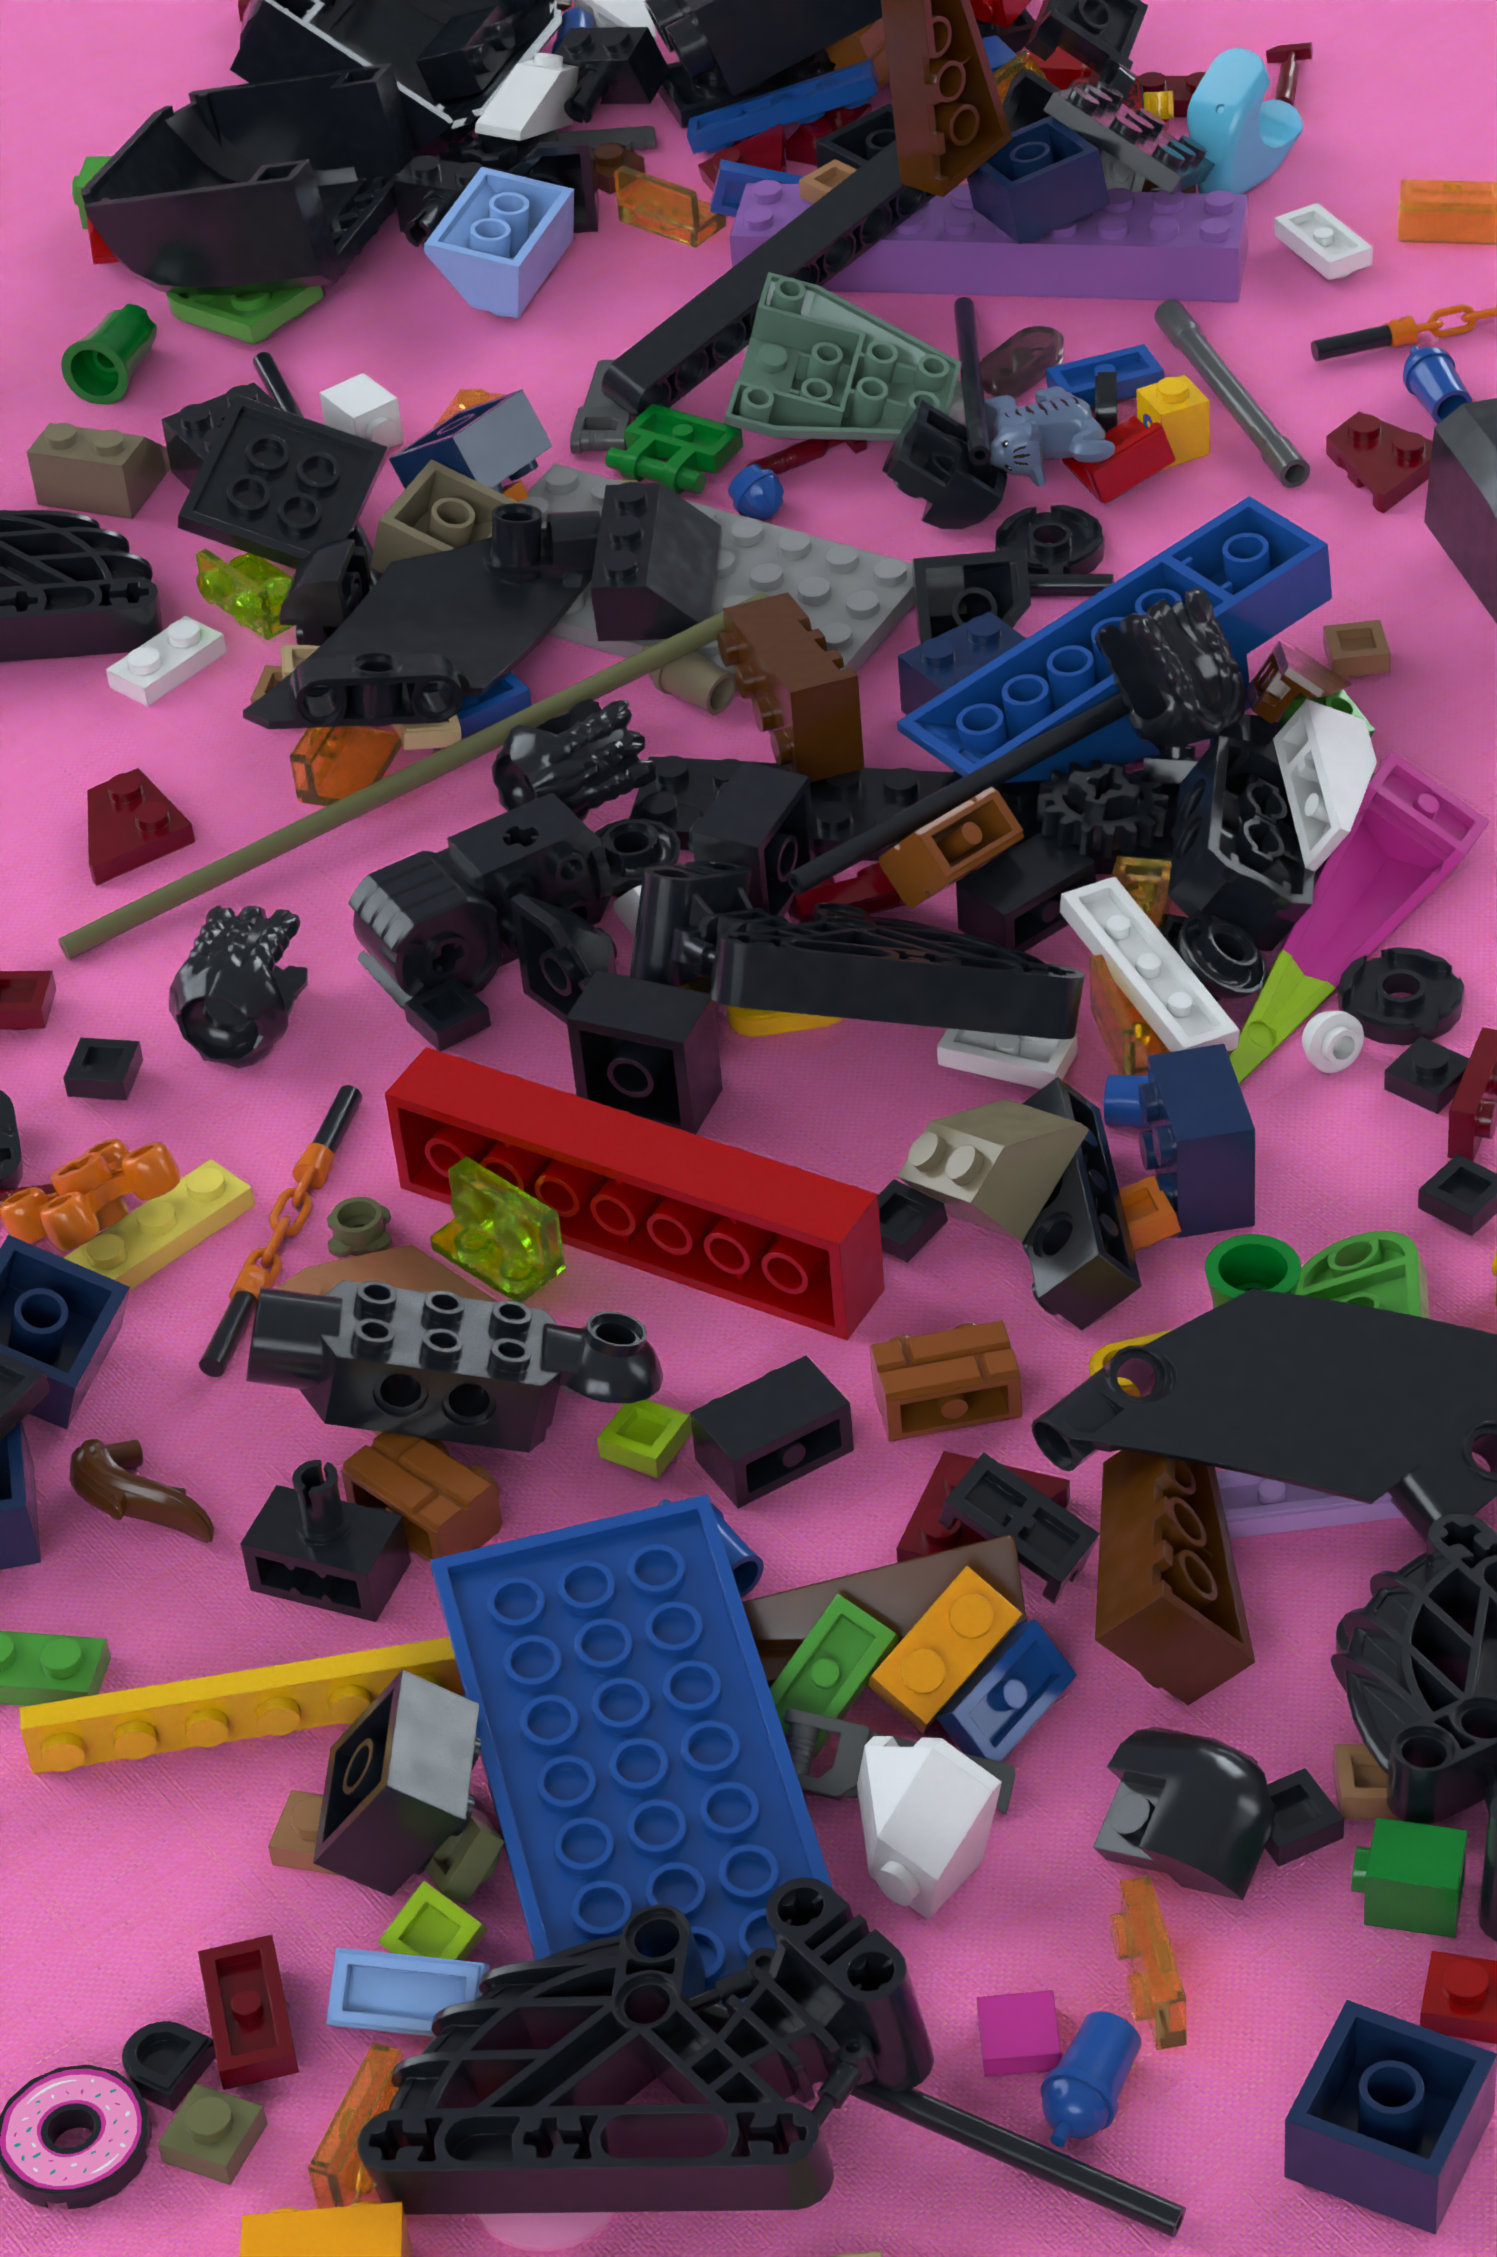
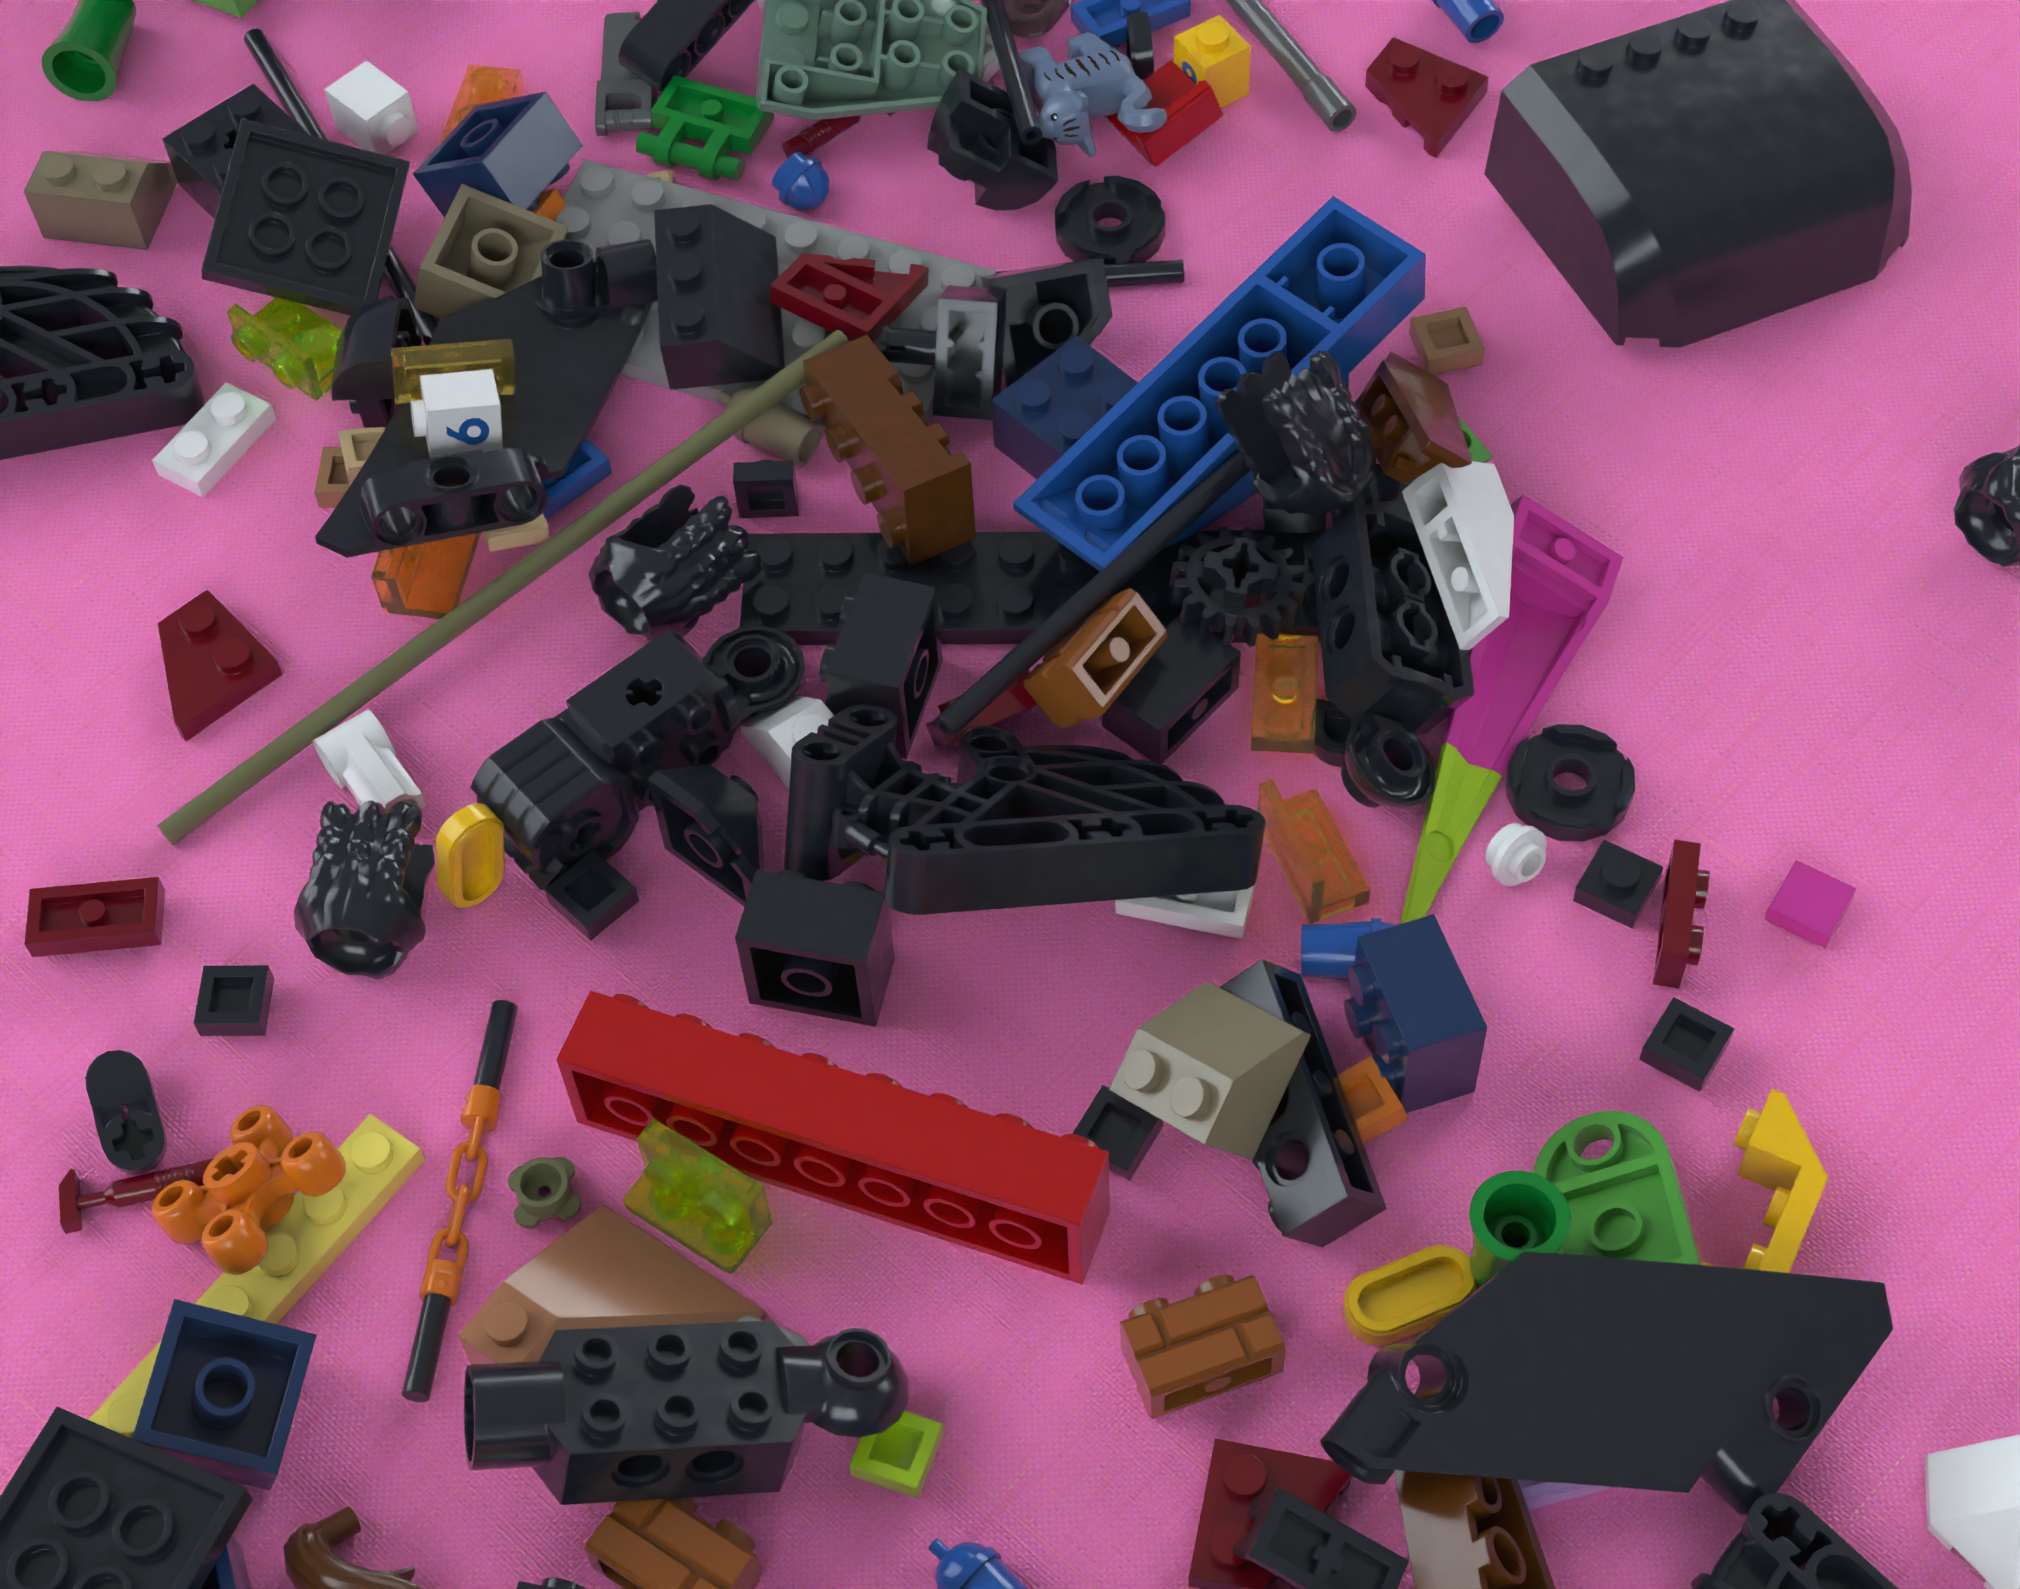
camera: 10 degrees left, 15 degrees up
(258, 886) = (365, 761): none -> white piece
(339, 965) = (470, 855): none -> yellow tile
(392, 622) = (458, 412): none -> white brick
(394, 597) = (414, 361): none -> clear yellow plate
(673, 722) = (766, 489): none -> black plate
(772, 1431) = (1030, 1432): black brick -> none
(778, 567) = (846, 293): none -> dark red wing
(879, 617) = (961, 350): none -> black brick
(1147, 967) = (1321, 791): white plate -> none

